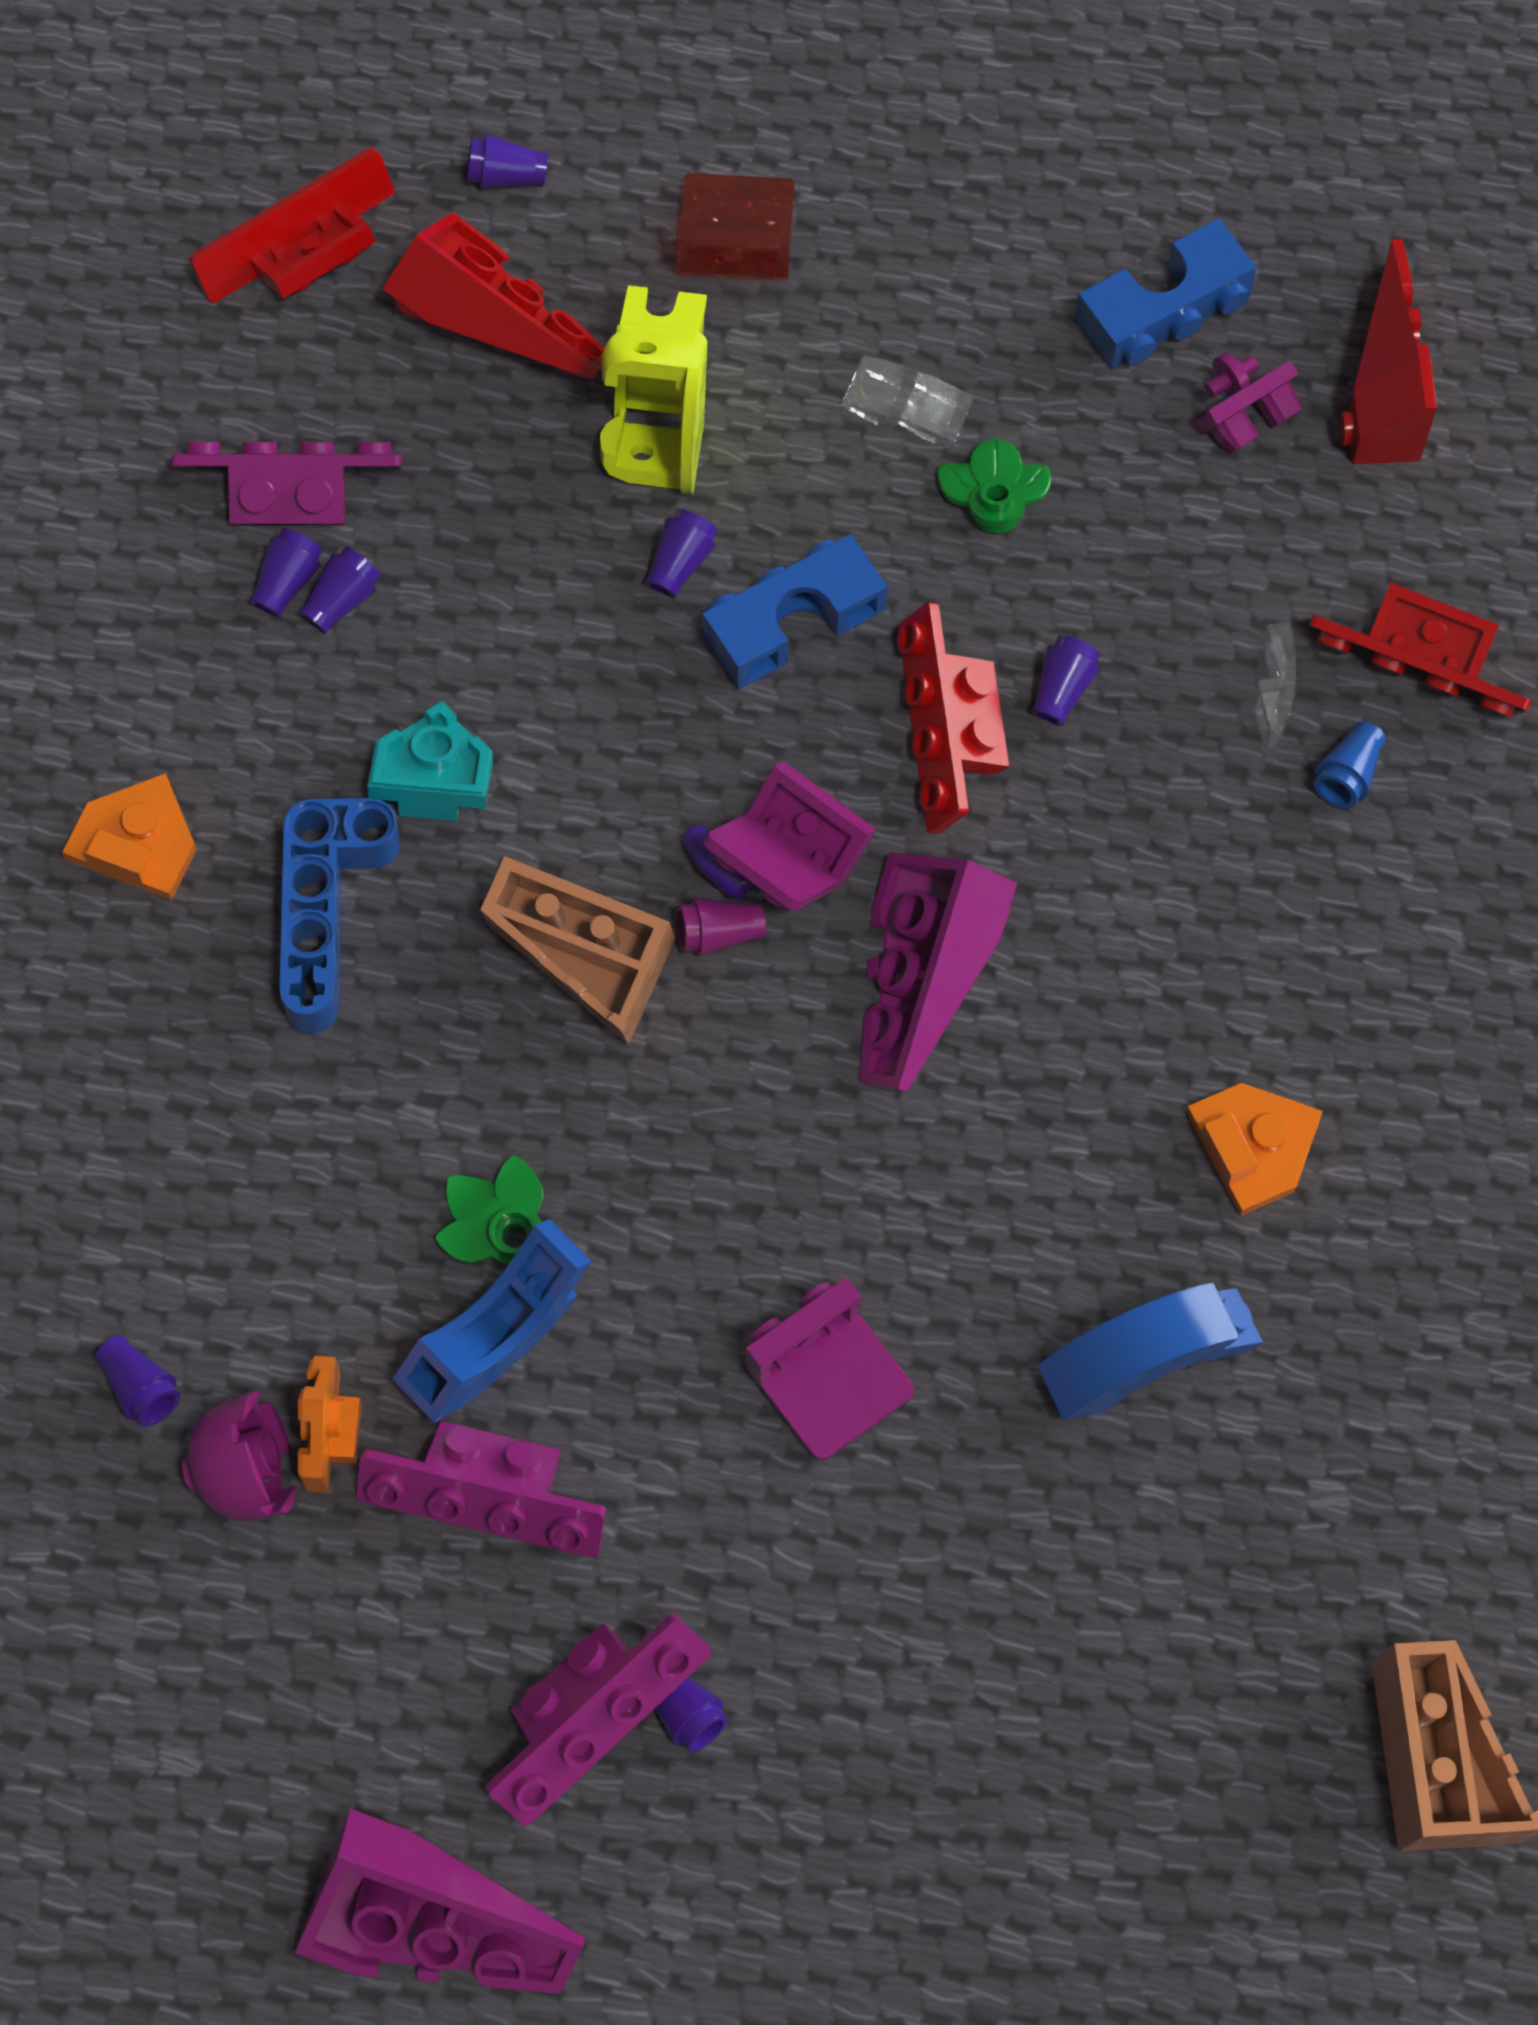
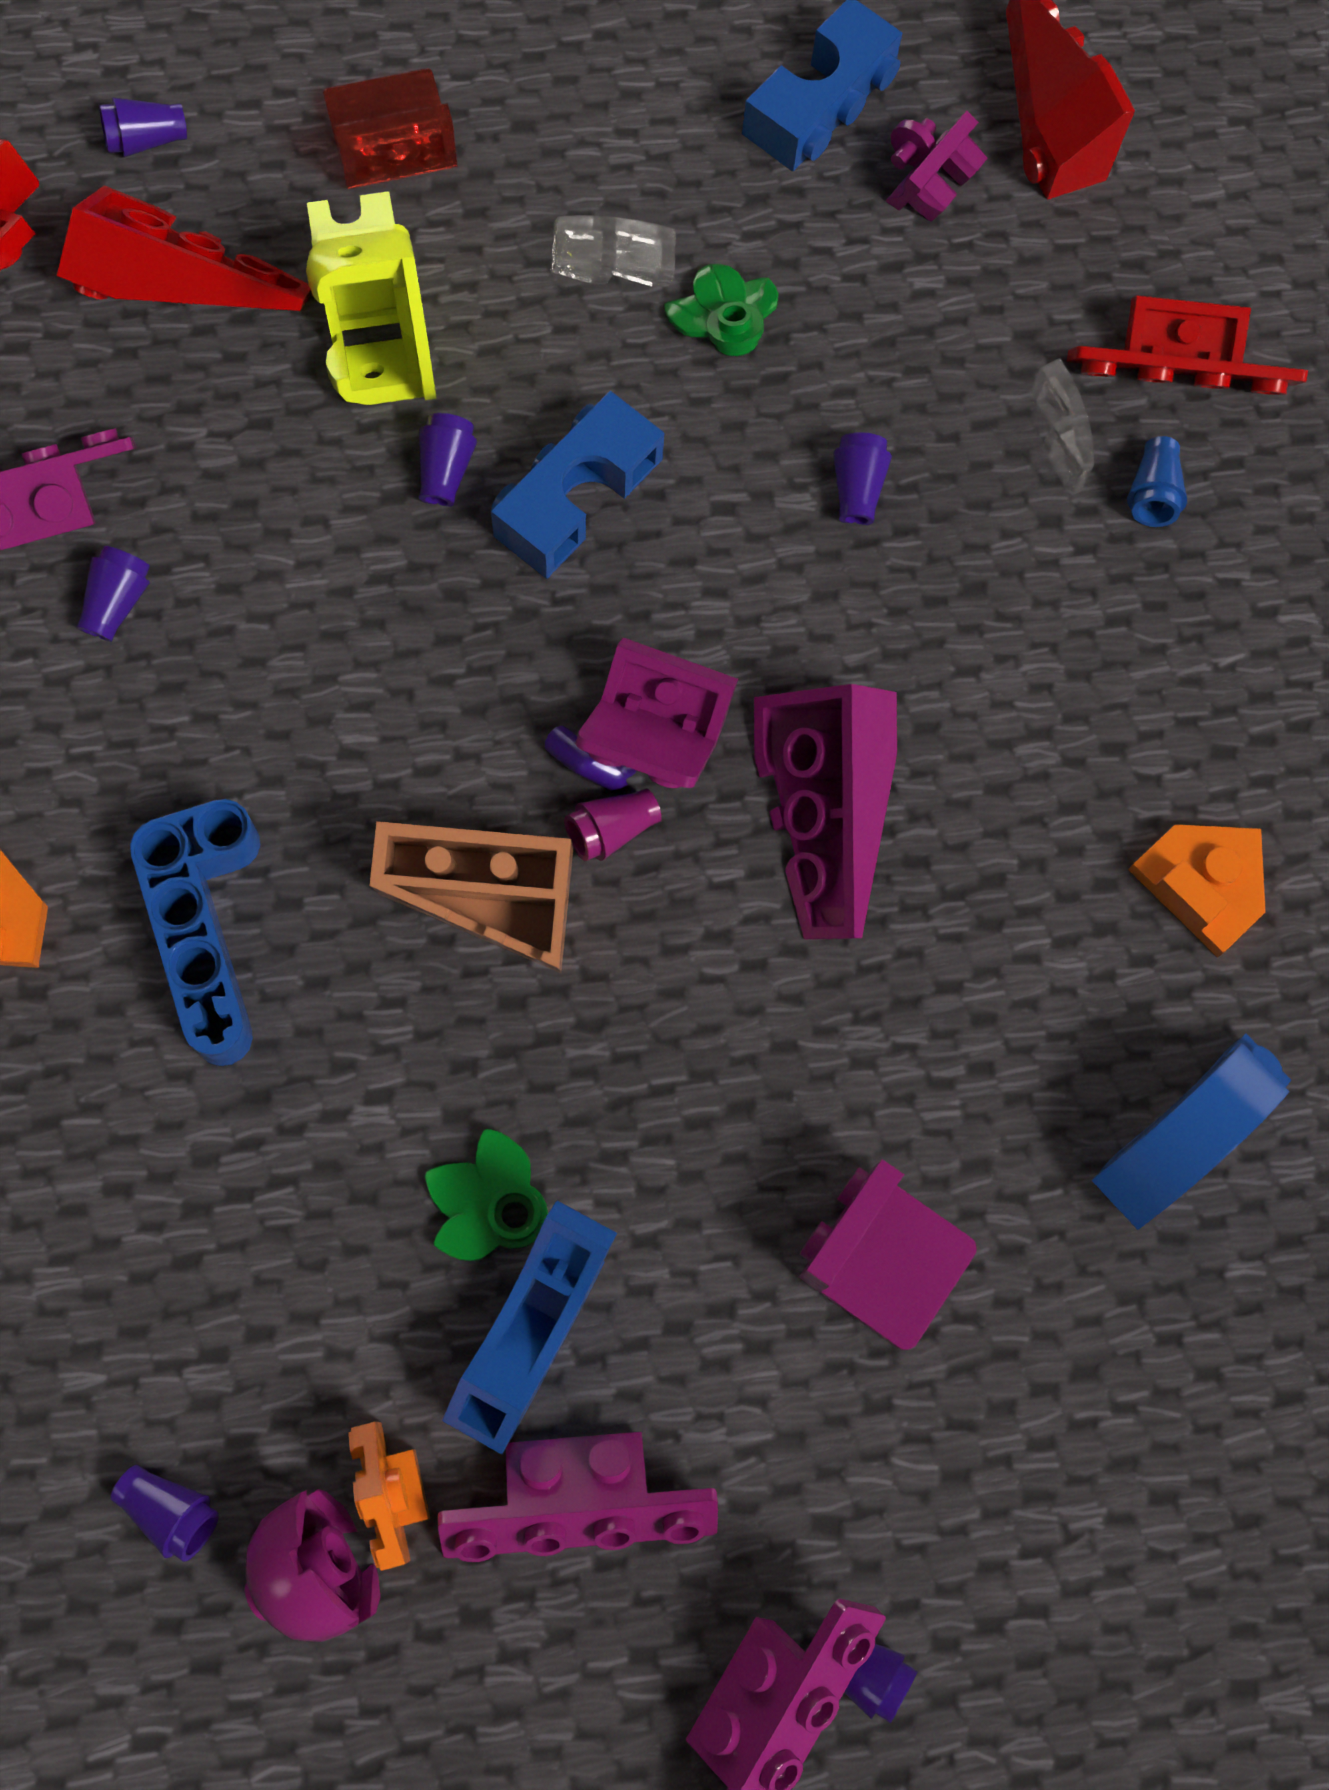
camera: 25 degrees left, 5 degrees up
(285, 570) = (48, 586): dark purple cone -> none
(431, 767) = (266, 748): teal plate -> none
(951, 716) = (764, 545): red bracket -> none

